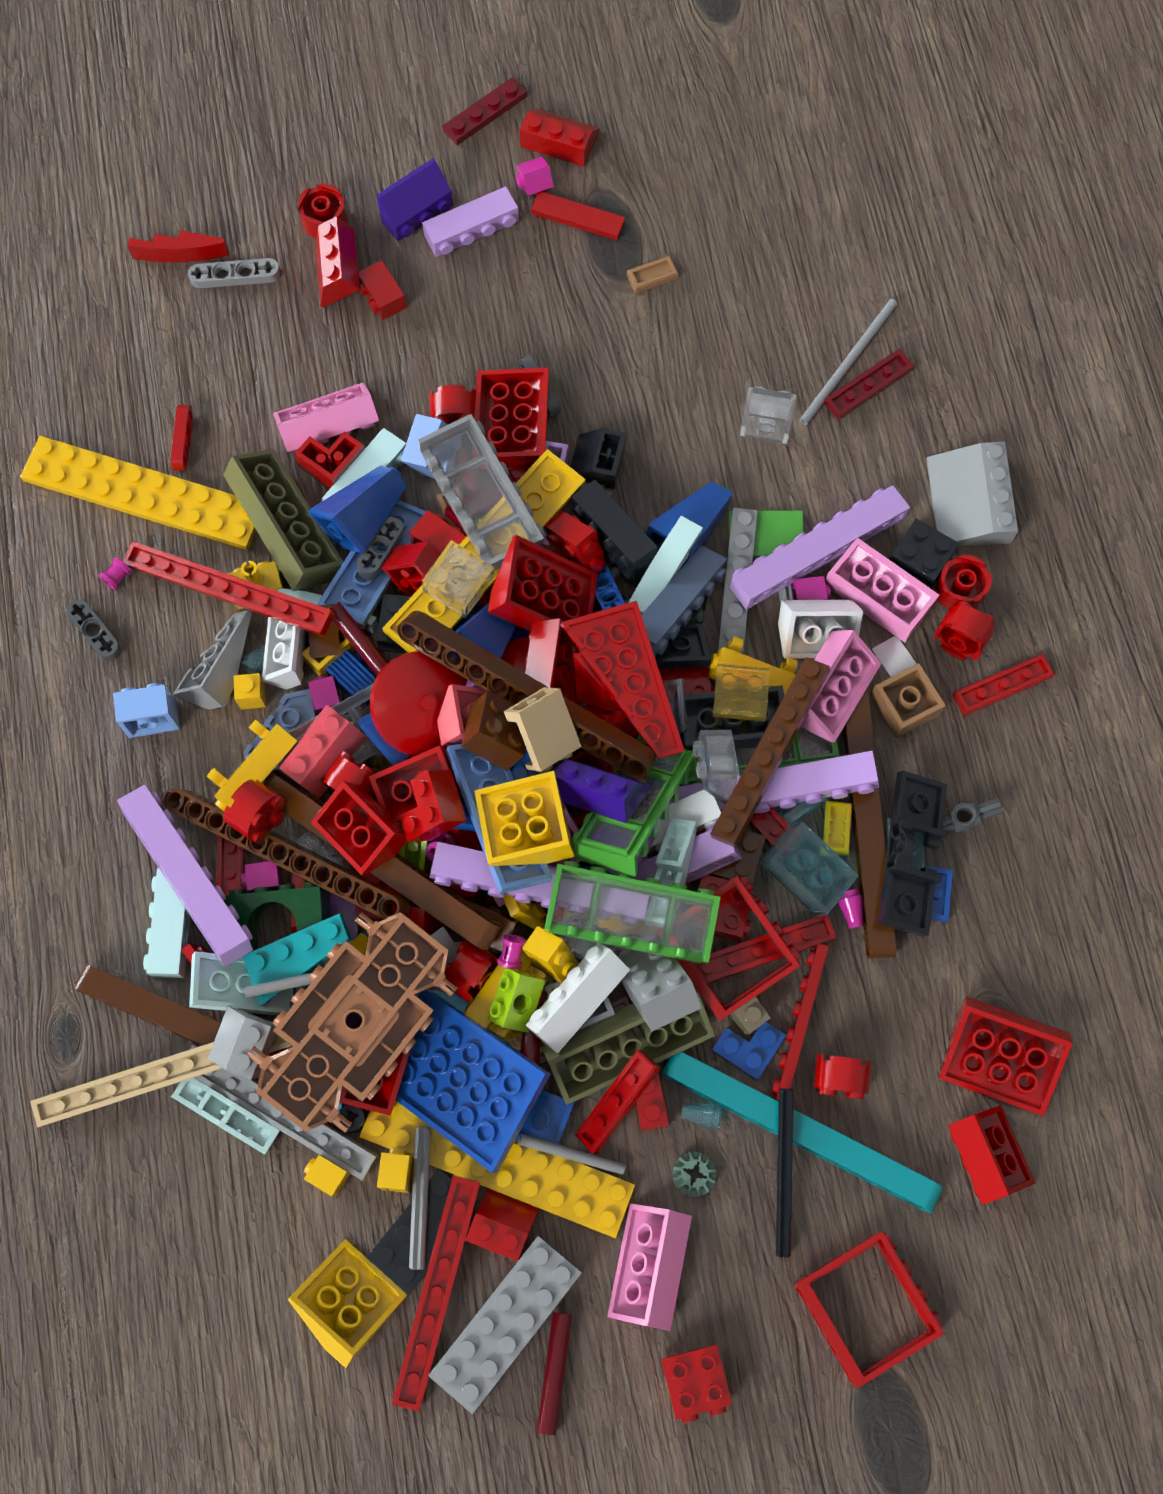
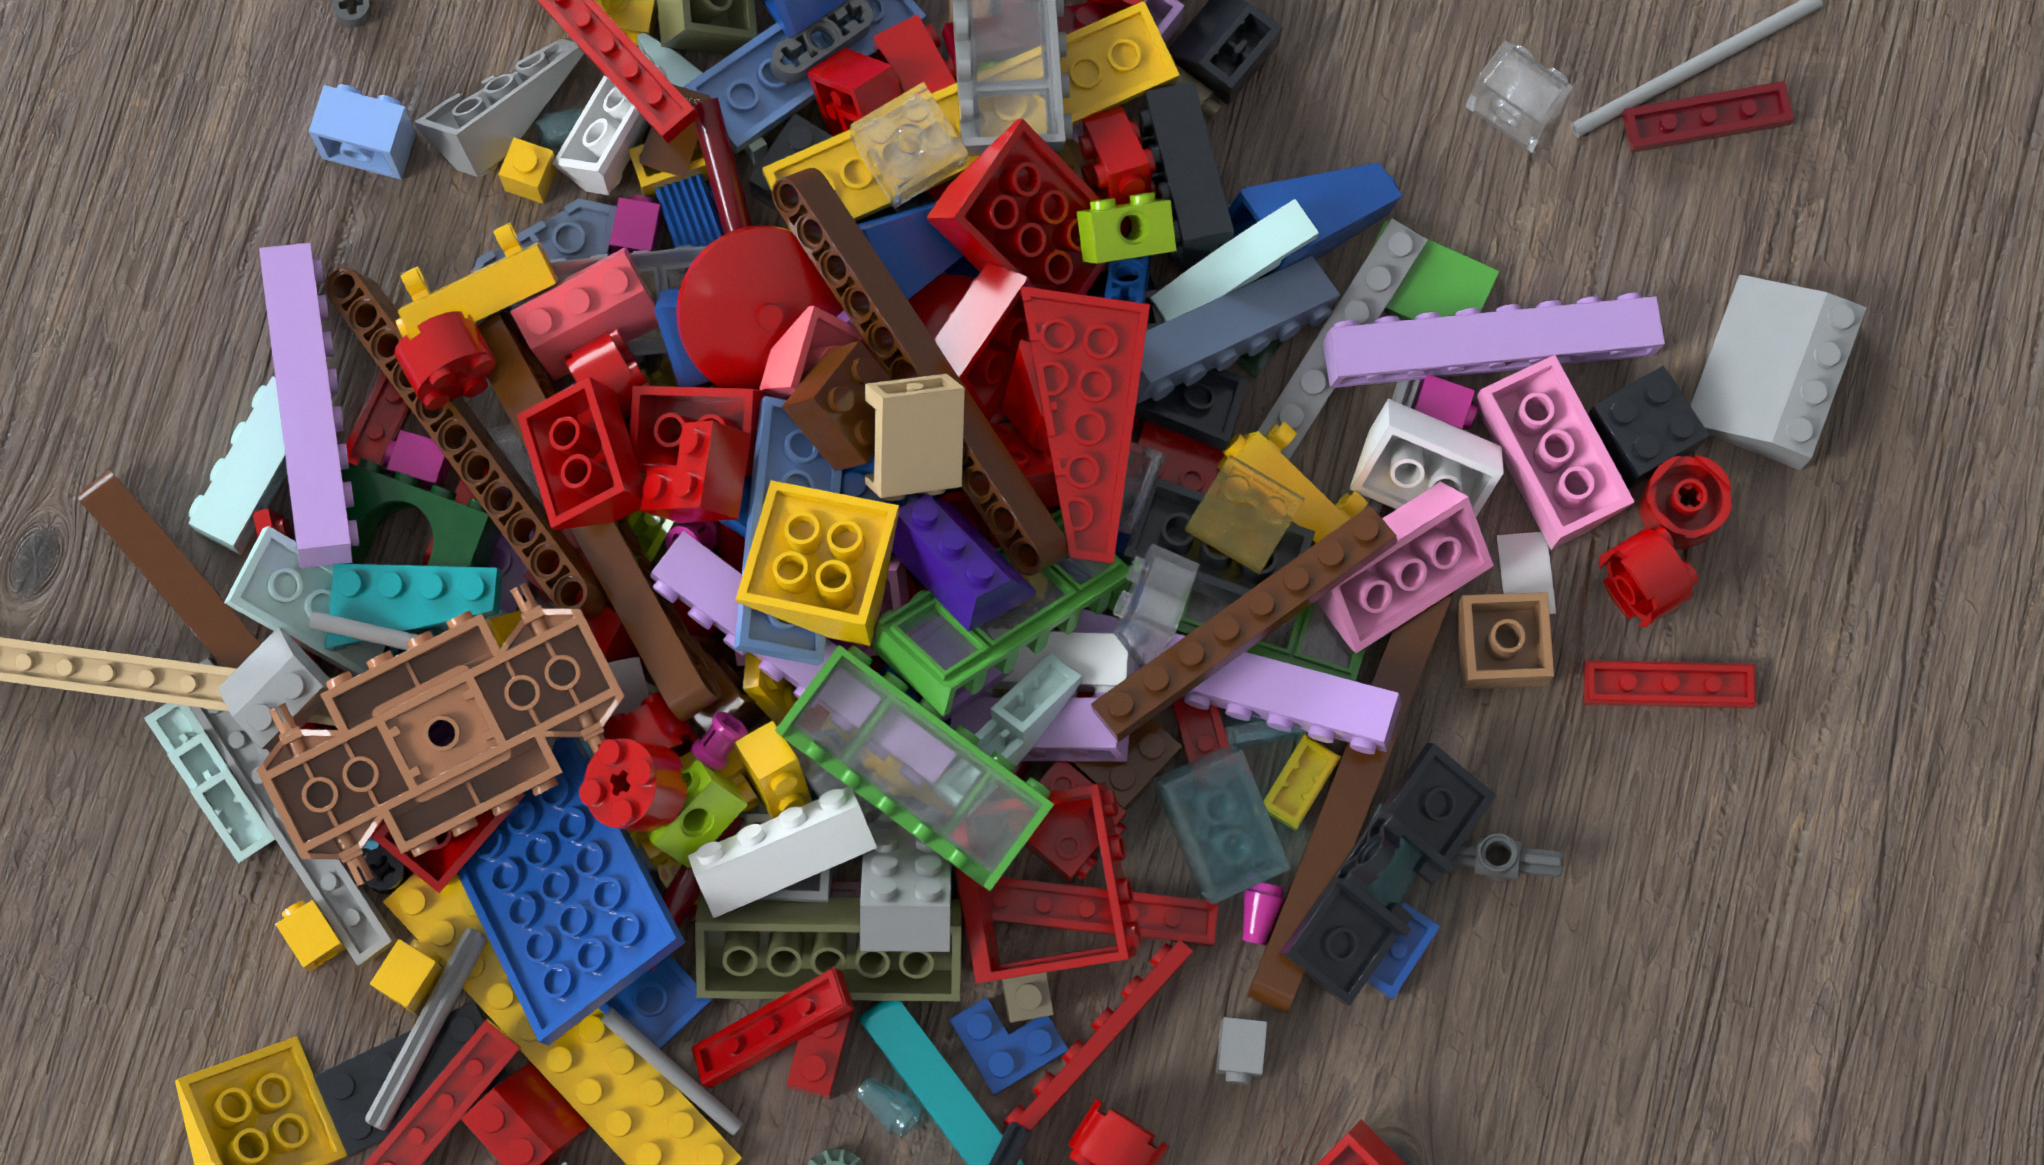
camera: 20 degrees right, 5 degrees up
(477, 998) = (634, 785): none -> red brick
(611, 567) = (1150, 232): none -> lime brick
(880, 989) = (1241, 1049): none -> light grey brick

